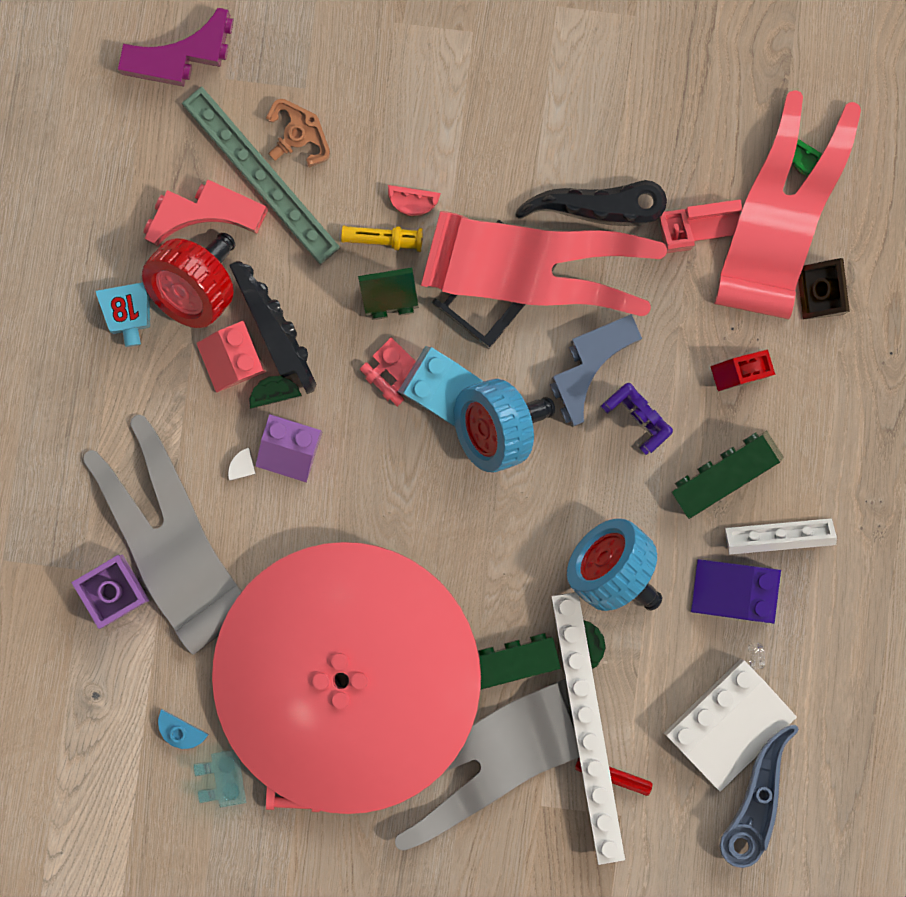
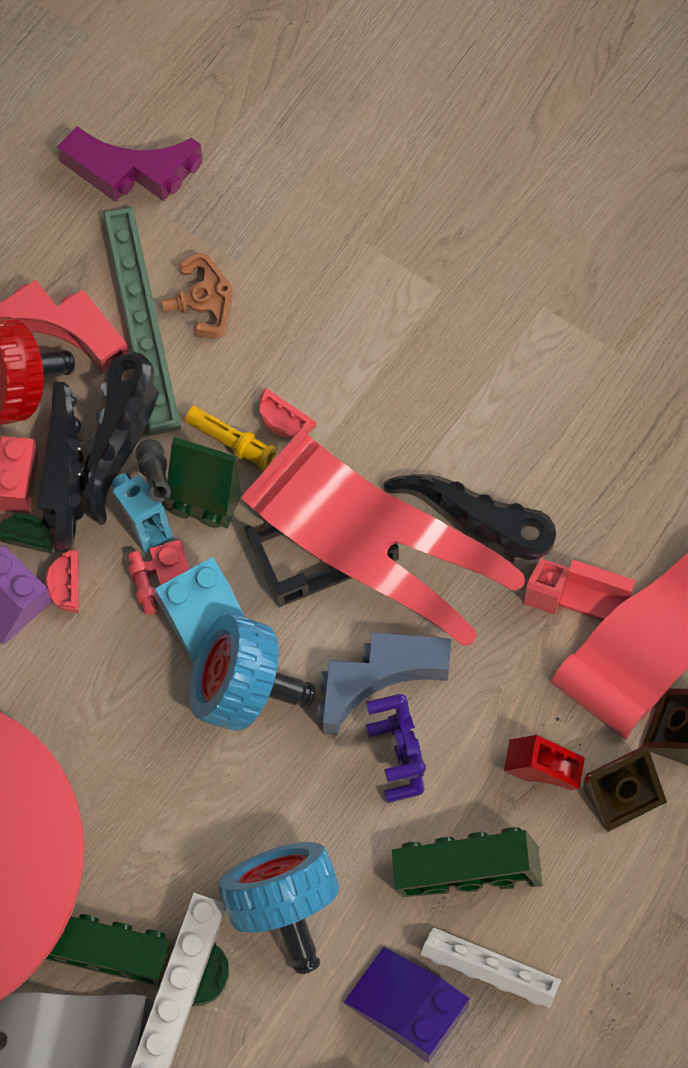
camera: 30 degrees right, 20 degrees down
(297, 272) = (120, 426): none -> black animal
(324, 414) = (63, 581): none -> coral plate
(342, 293) = (153, 466): none -> dark grey pin
(358, 334) = (136, 506): none -> medium azure torso
(808, 359) = (624, 788): none -> dark brown slope

